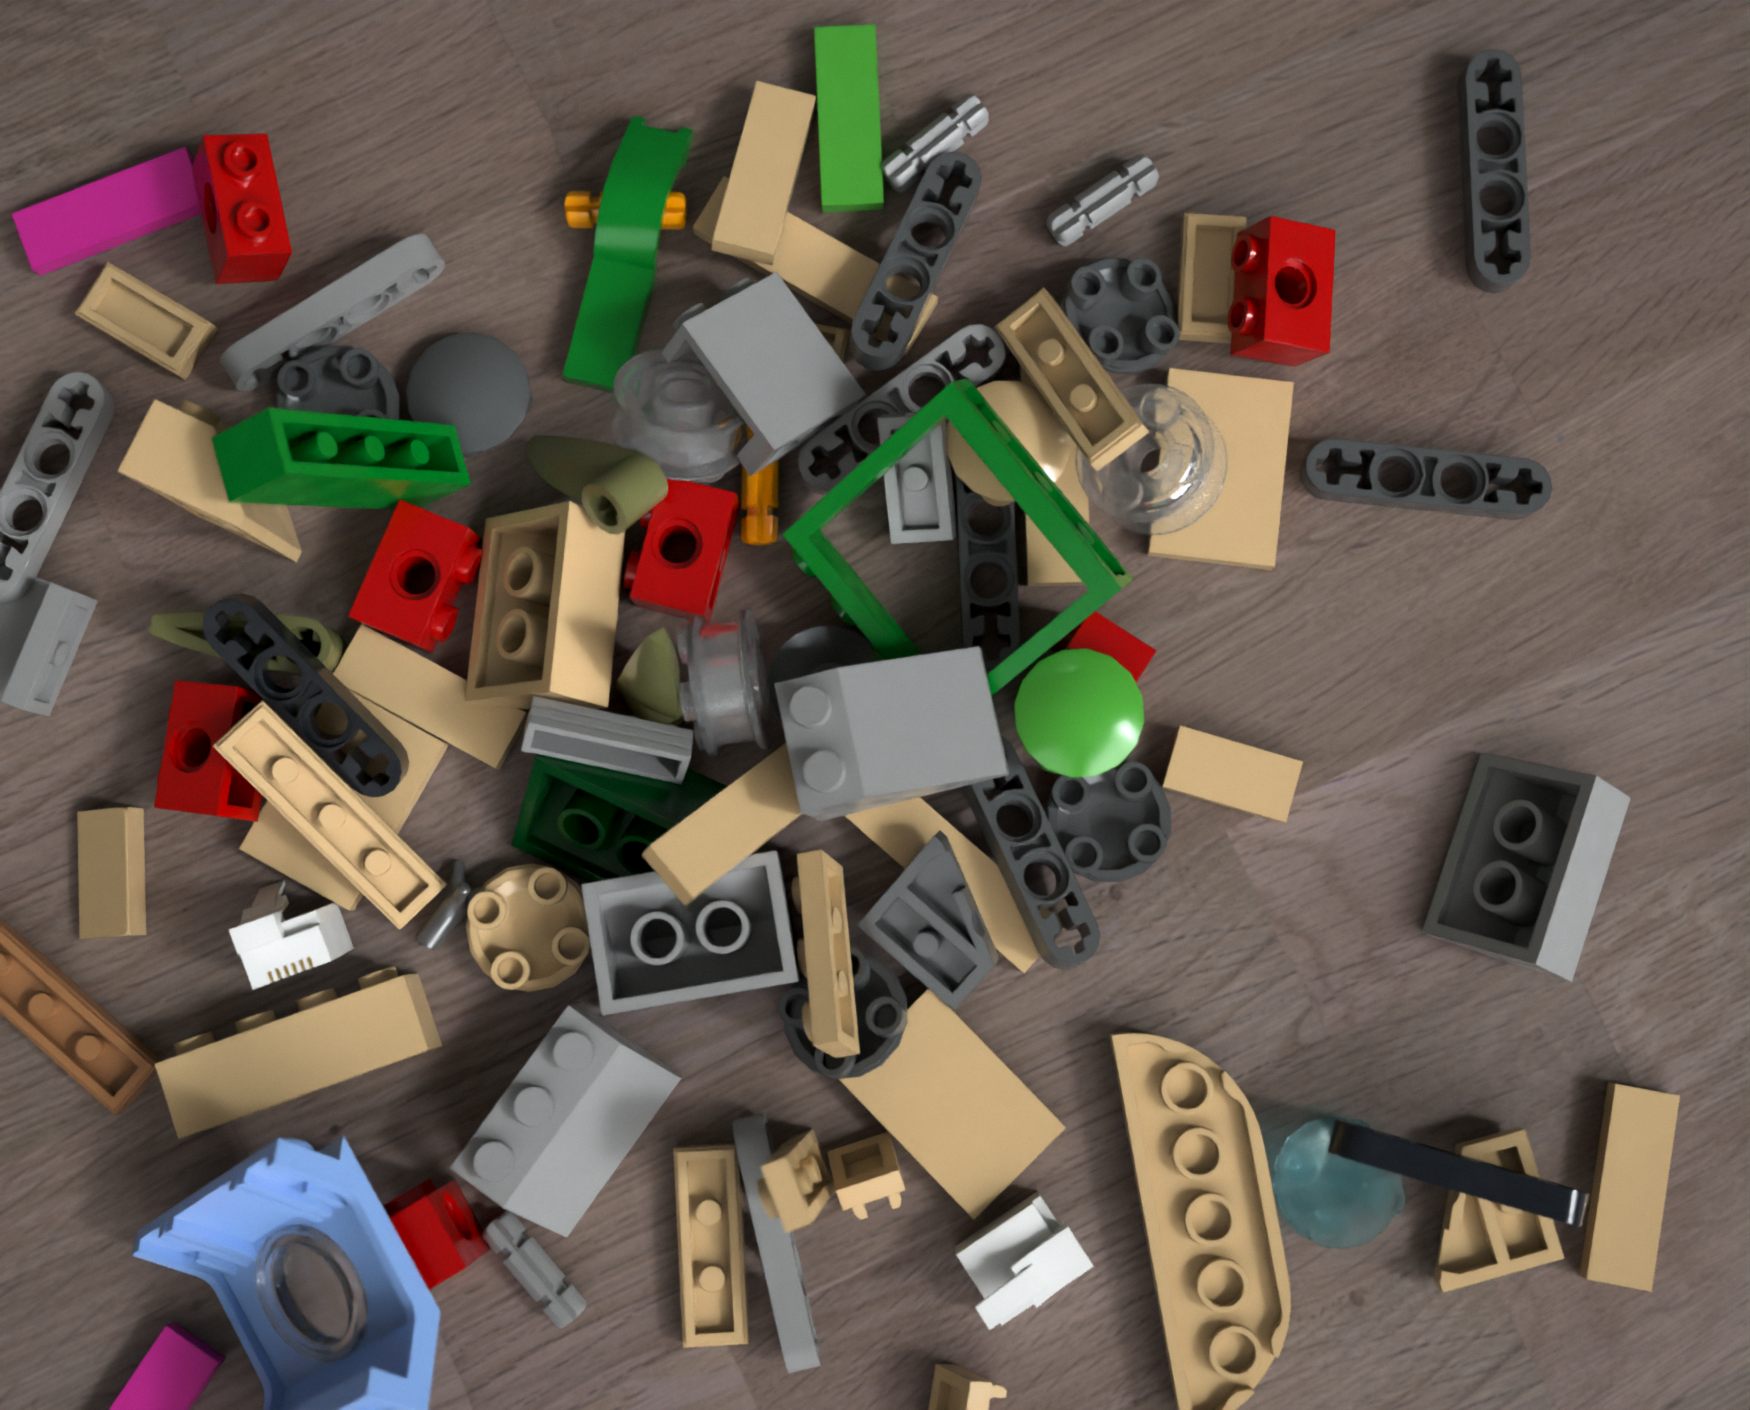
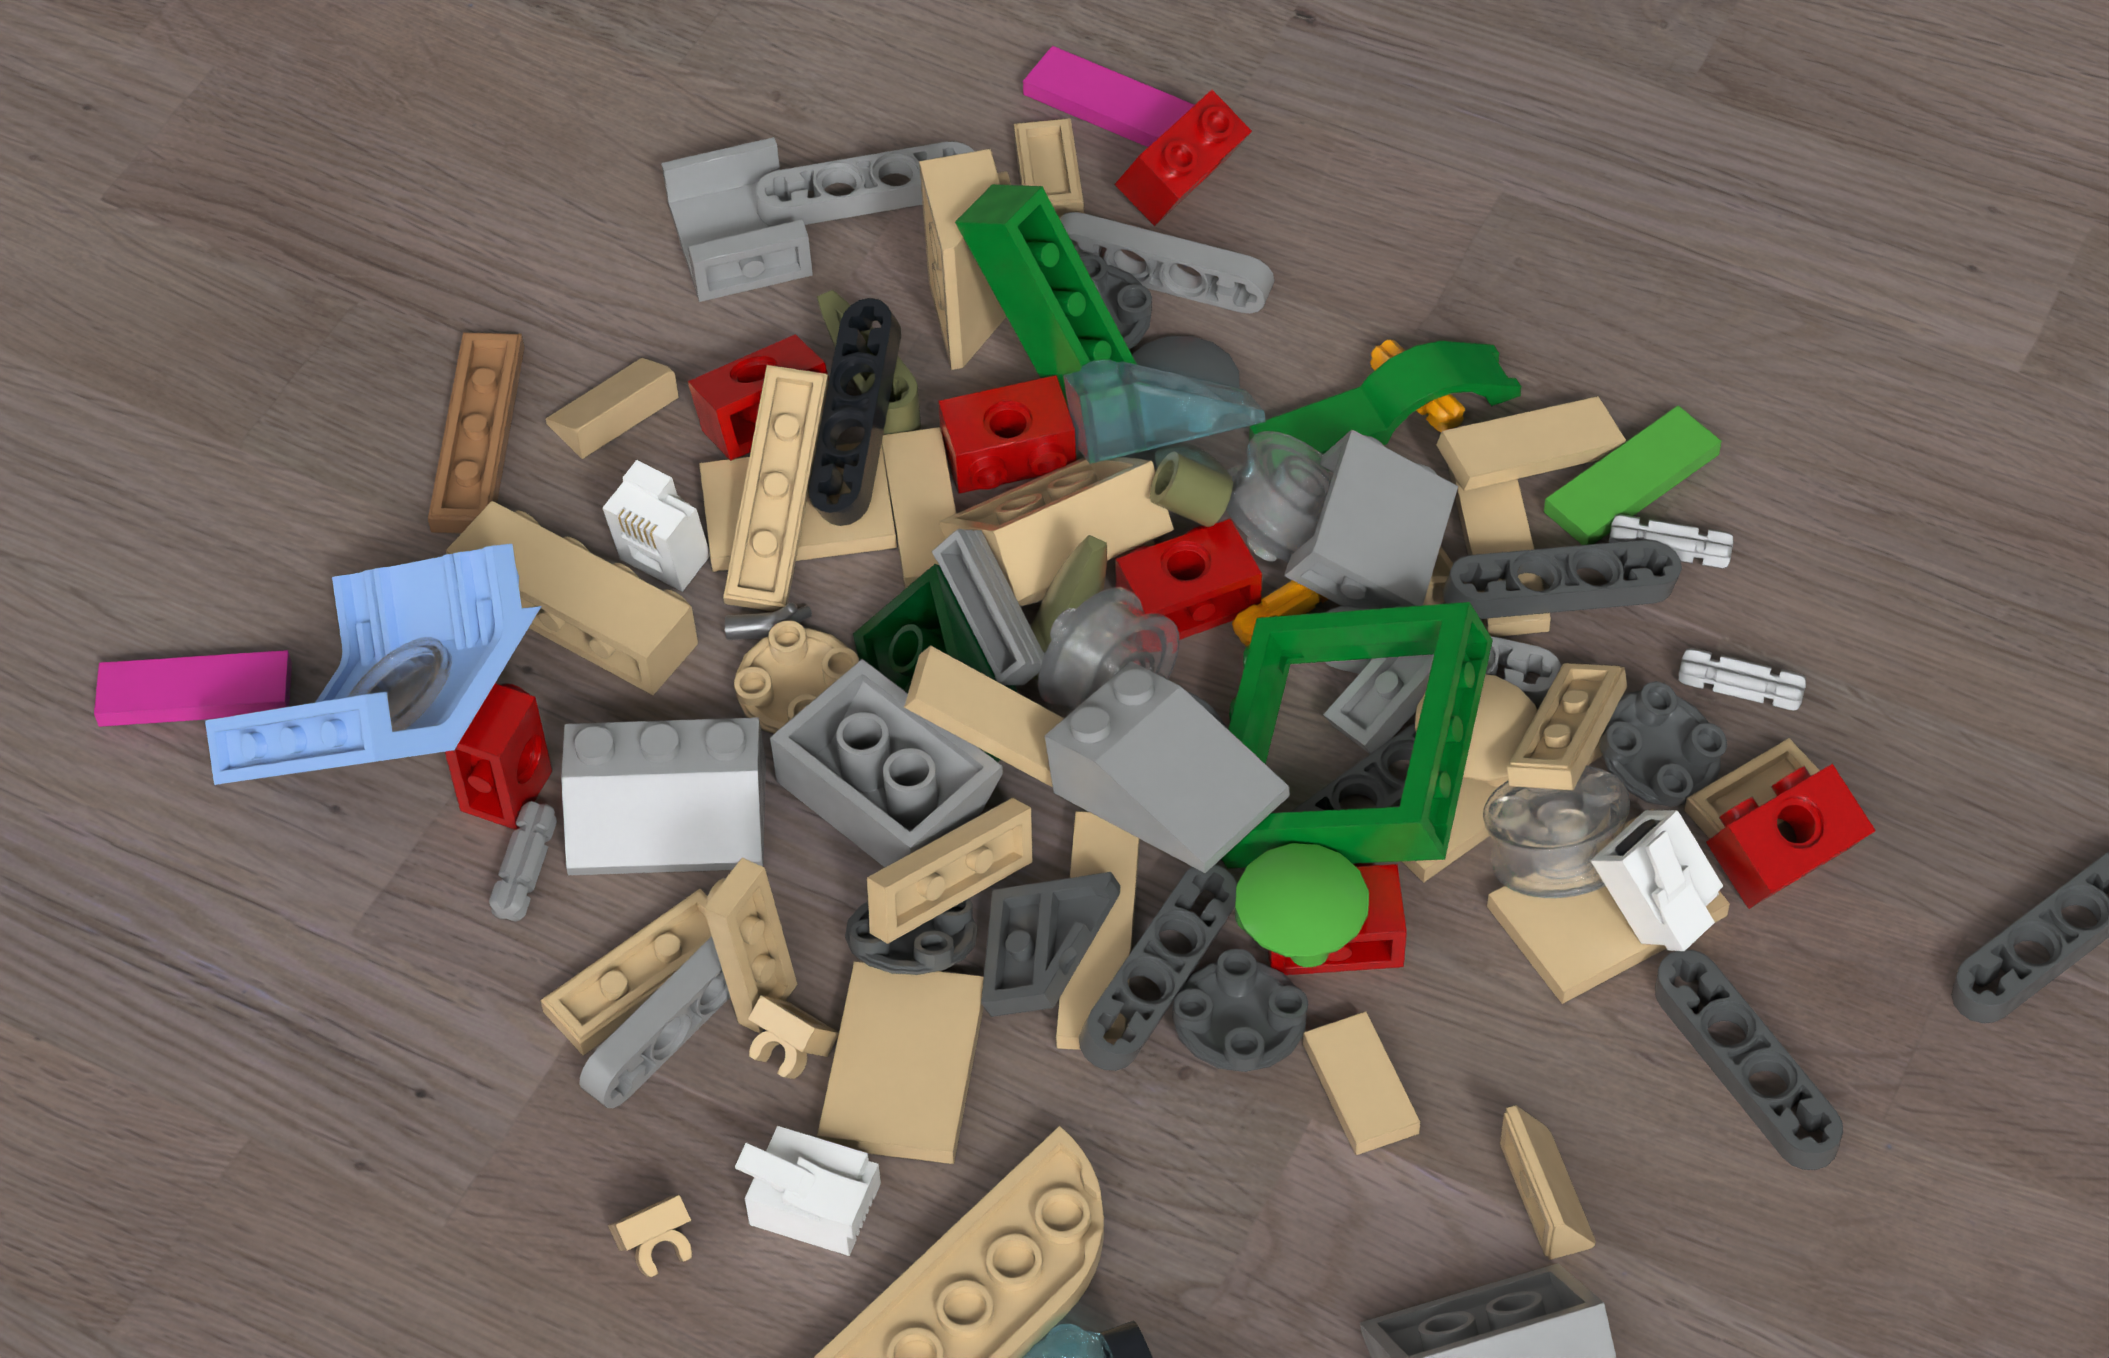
camera: 50 degrees right, 30 degrees down
(501, 447) = (1141, 408): none -> clear light blue slope
(1266, 428) = (1660, 879): none -> white piece
(1420, 712) = (1544, 1185): none -> tan slope

